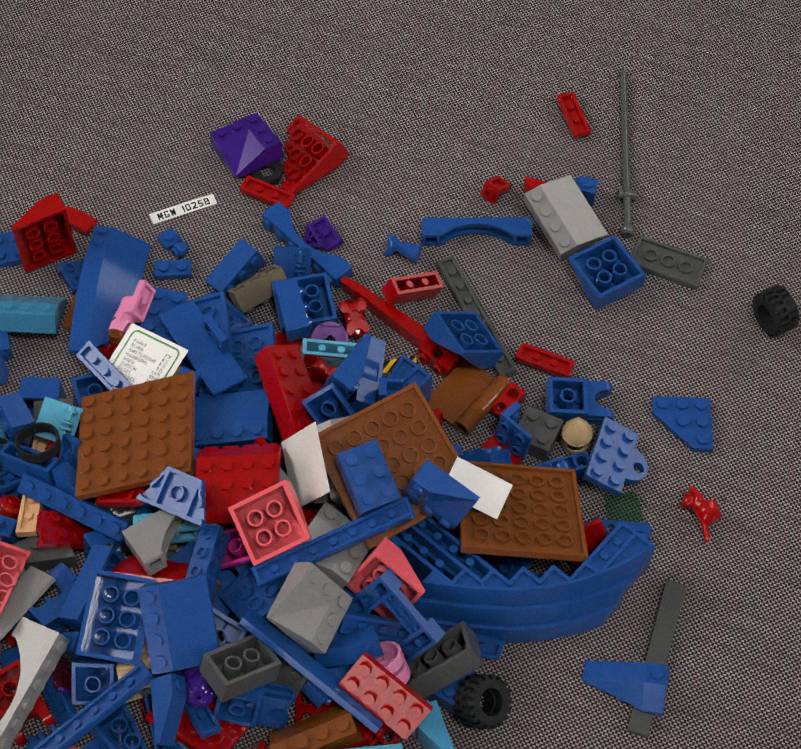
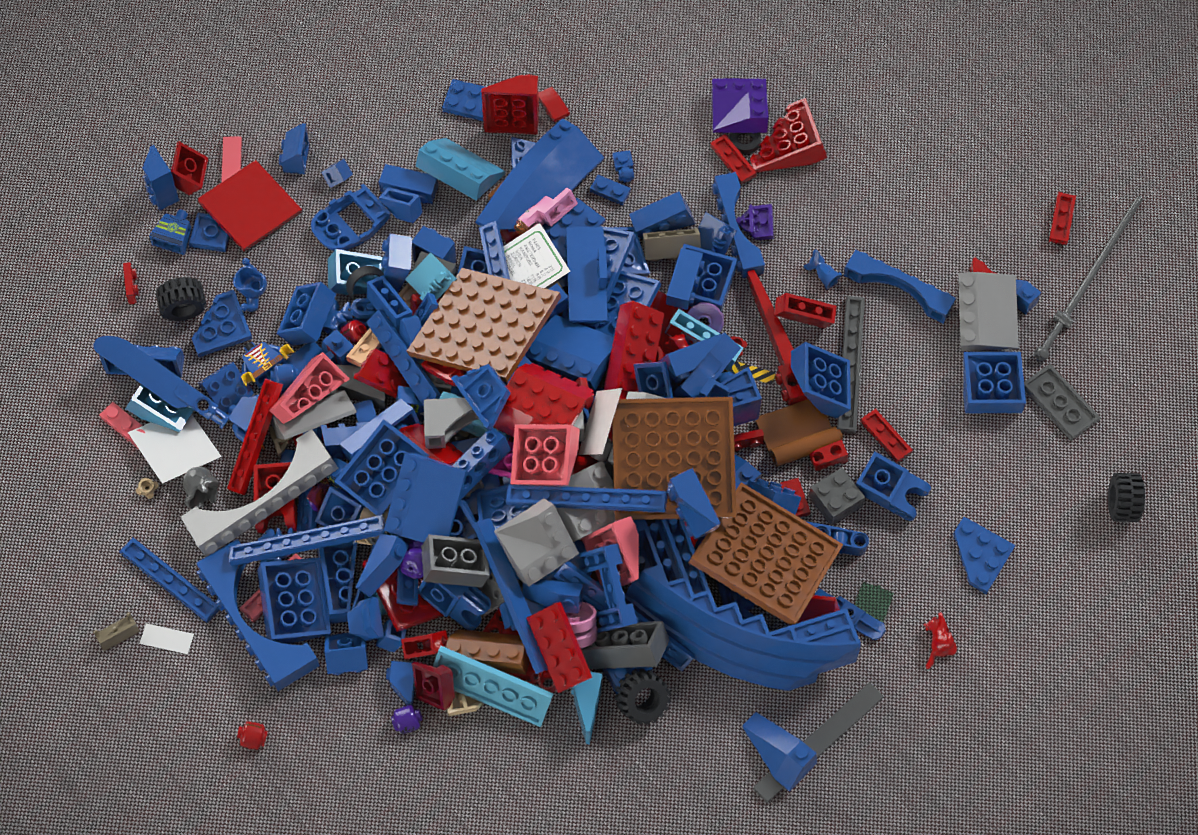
camera: 30 degrees right, 5 degrees up
(32, 429) = (402, 275): black tyre -> none
(183, 208) = (652, 137): white sticker -> none
(354, 315) = (739, 310): red animal -> none
(367, 477) = (642, 458): blue brick -> none
(488, 487) = (737, 515): white sticker -> none
(494, 188) = (942, 253): red bracket -> none
(511, 433) = (808, 482): blue bracket -> none
(577, 434) = (870, 515): tan helmet -> none
(614, 458) = (891, 553): blue plate -> none

